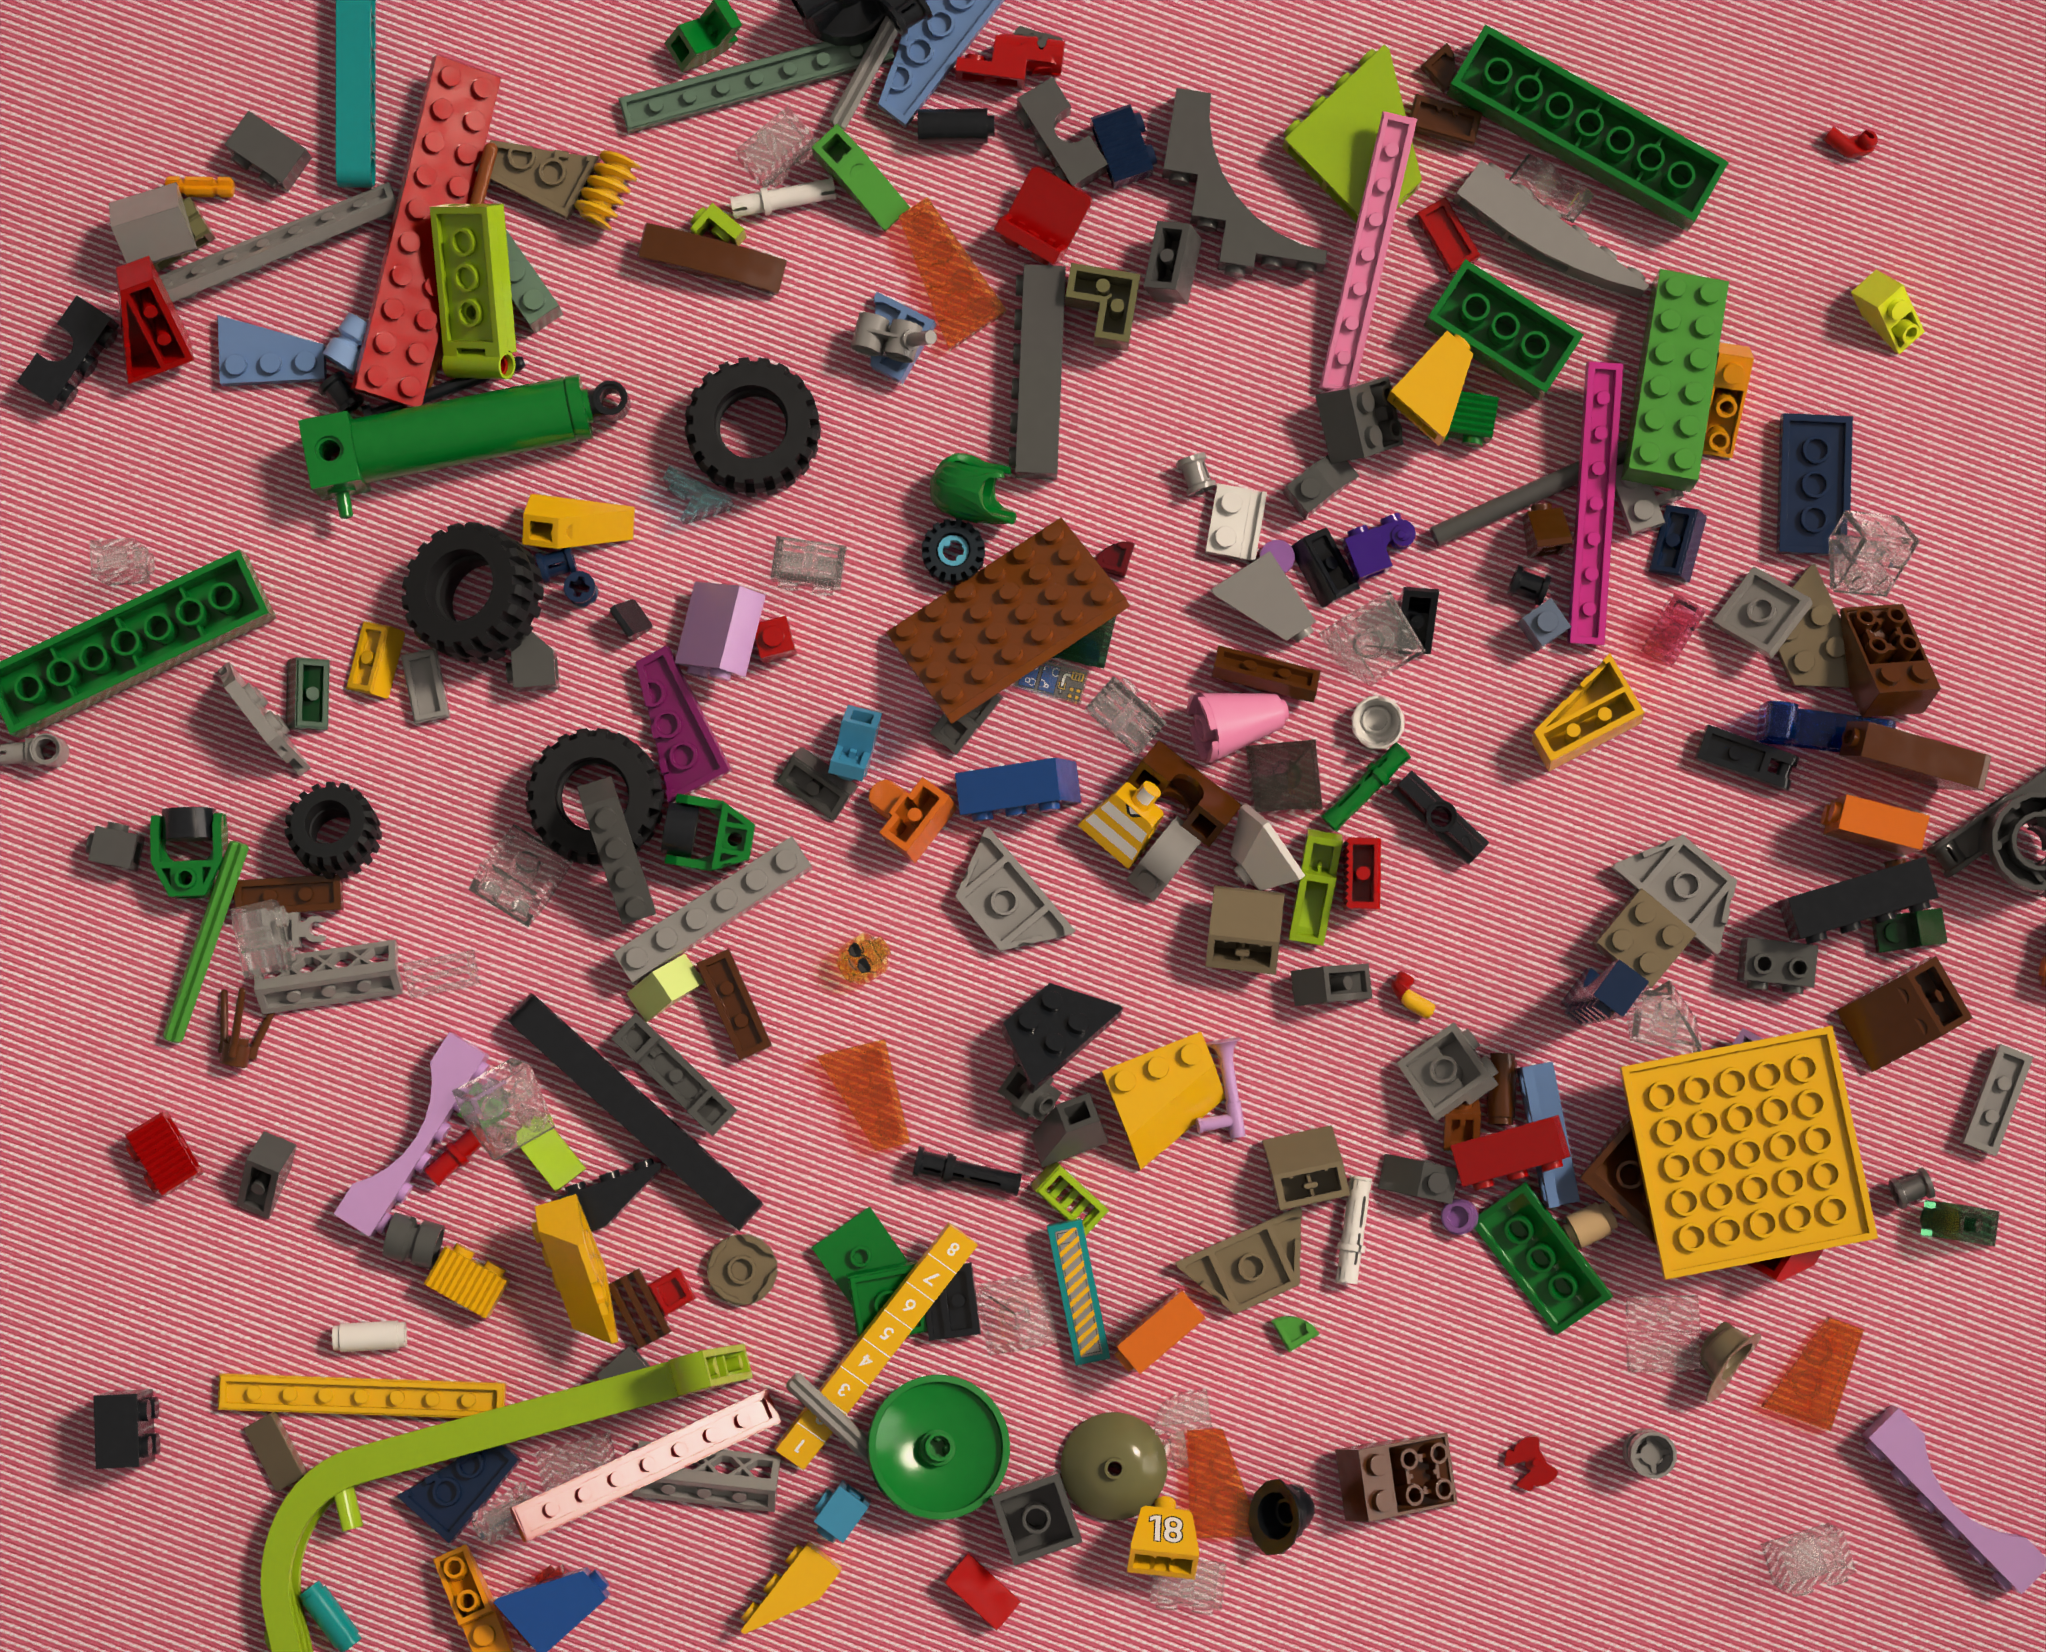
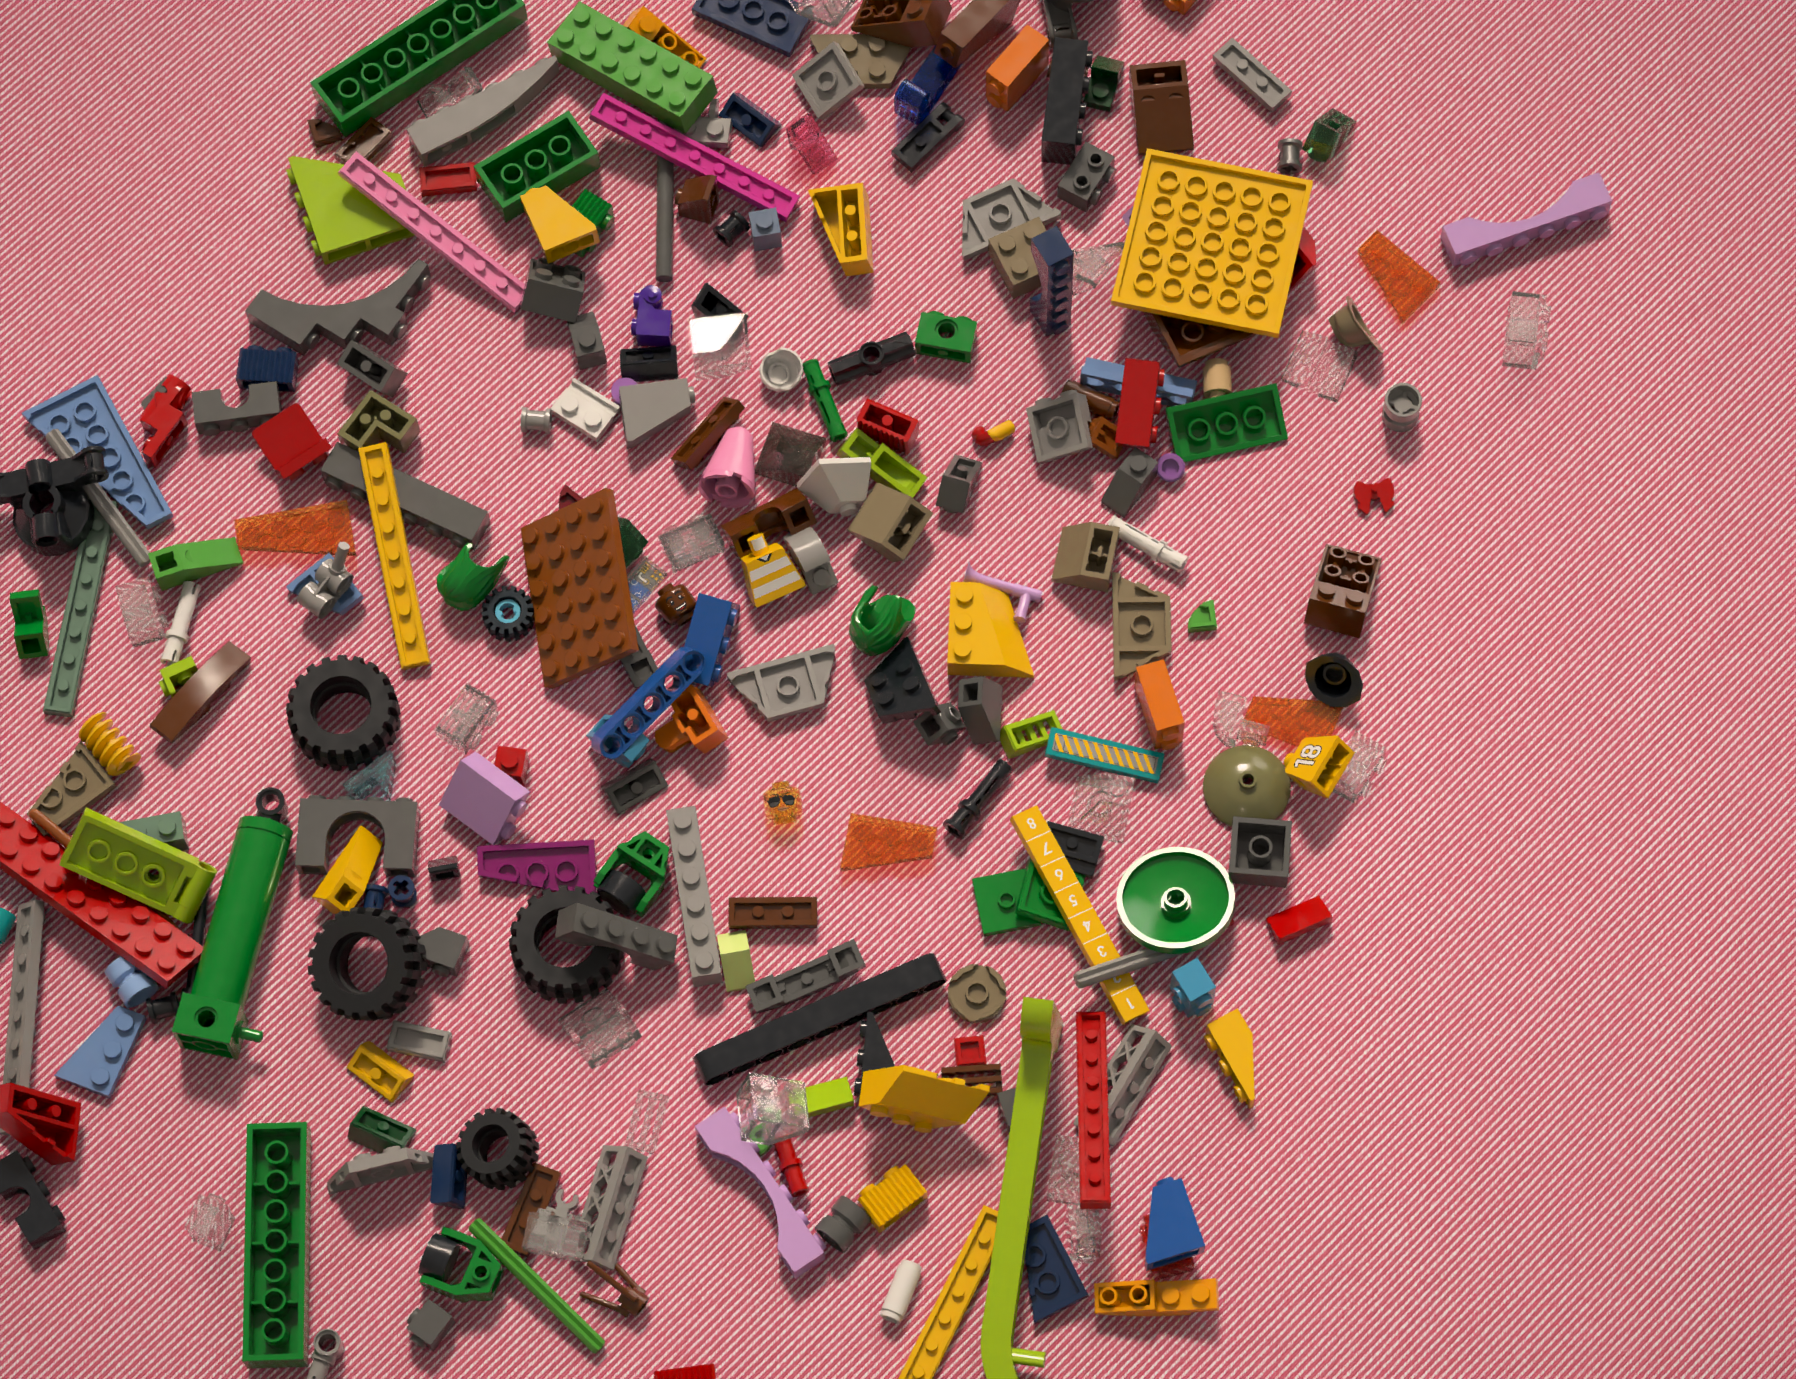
camera: 60 degrees left, 15 degrees down
(265, 1174) = (739, 1317): dark grey slope -> none
(275, 793) = (448, 1178): none -> dark blue slope
(624, 460) = (323, 817): none -> dark grey arch
(885, 760) = (662, 699): none -> blue beam
(955, 126) = (190, 480): black brick -> none
(961, 394) = (394, 556): none -> yellow tile
(1044, 733) = (675, 604): none -> reddish brown head
(1123, 971) = (879, 624): none -> green hair
(1497, 910) = (956, 348): none -> green brick

